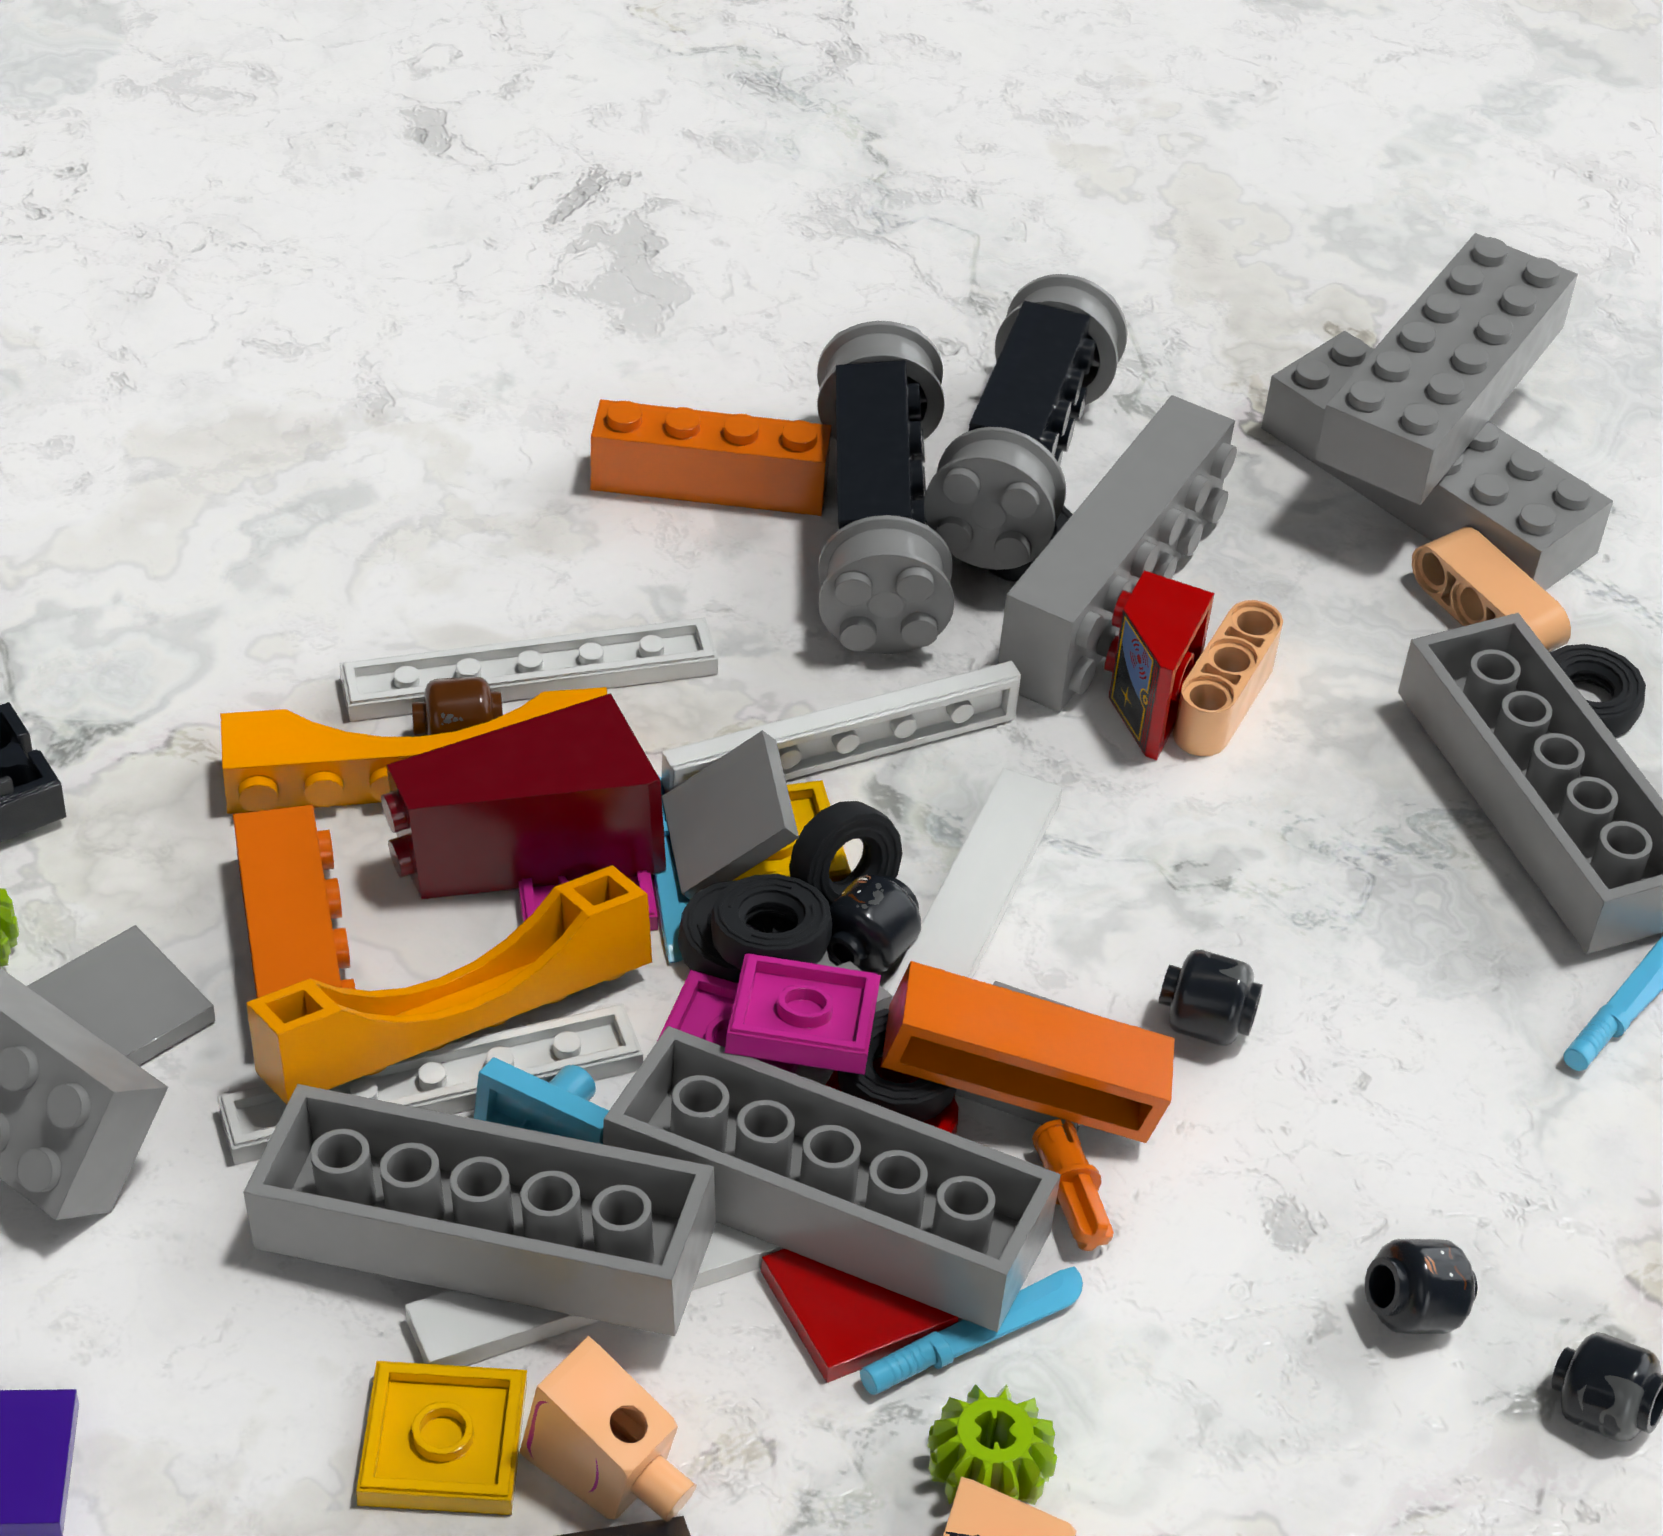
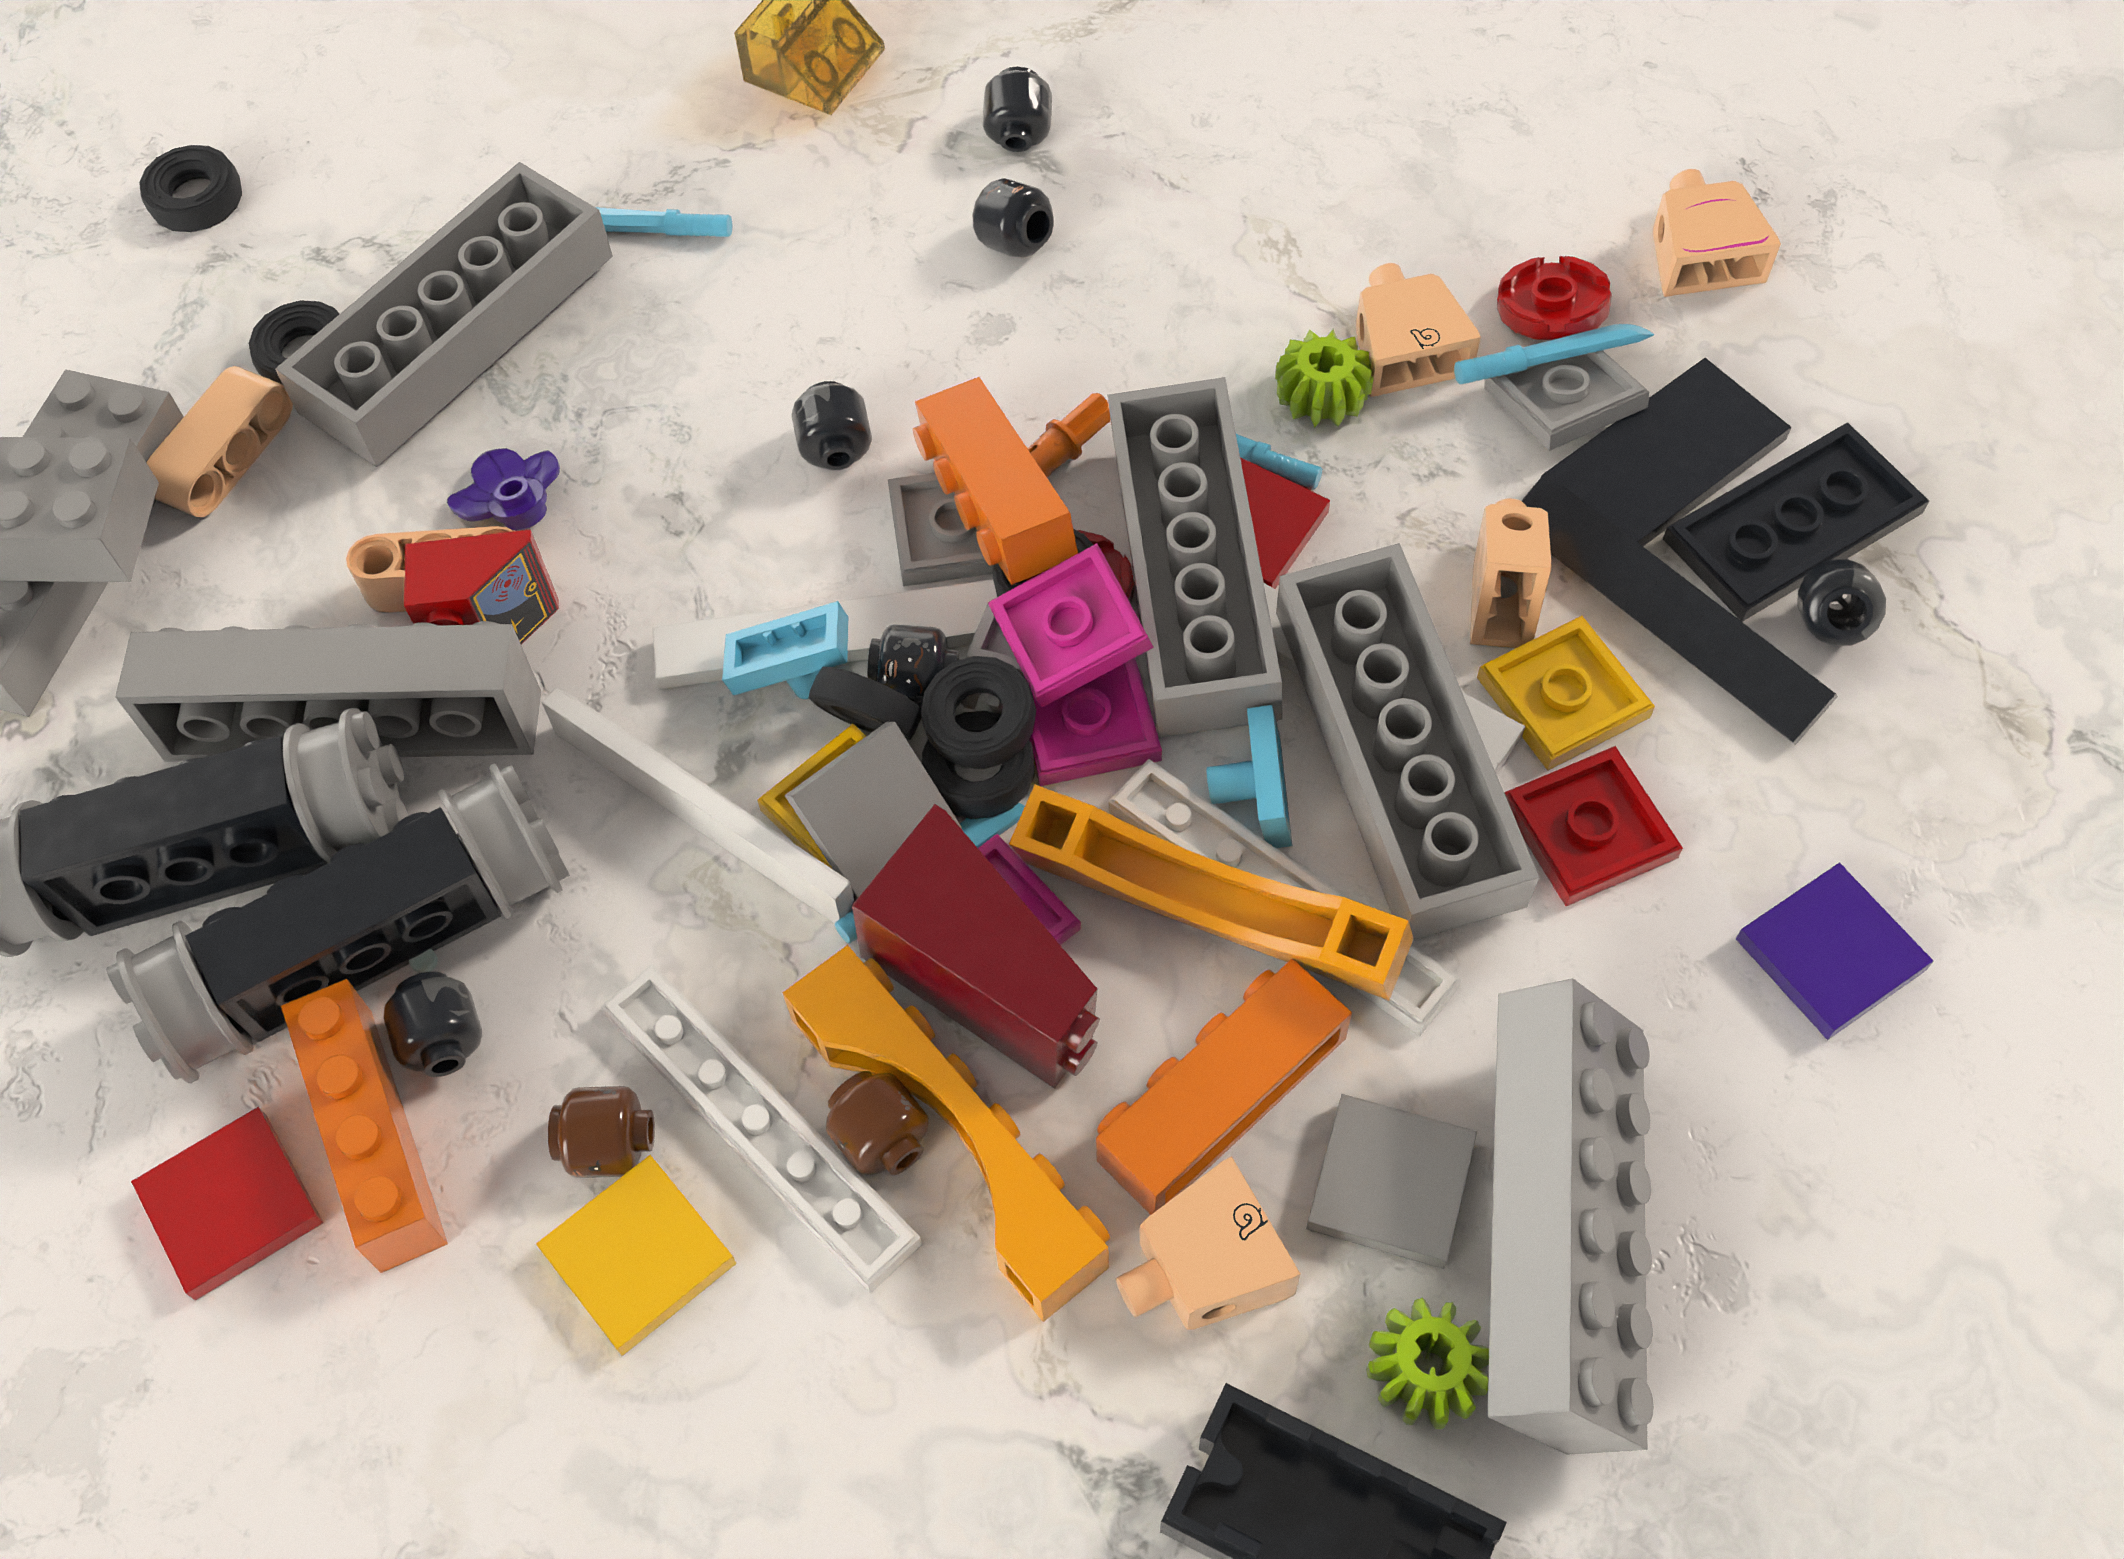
camera: 115 degrees left, 15 degrees up
(165, 852) = (1210, 1254): none -> light nougat torso
(287, 1360) = (1592, 825): none -> red tile
(486, 566) = (636, 1254): none -> yellow tile
(598, 573) = (600, 1131): none -> reddish brown head
(720, 381) = (226, 1203): none -> red tile
(765, 519) = (432, 1024): none -> black head
(944, 834) = (786, 650): none -> medium azure tile
(1307, 762) = (507, 488): none -> dark purple plate

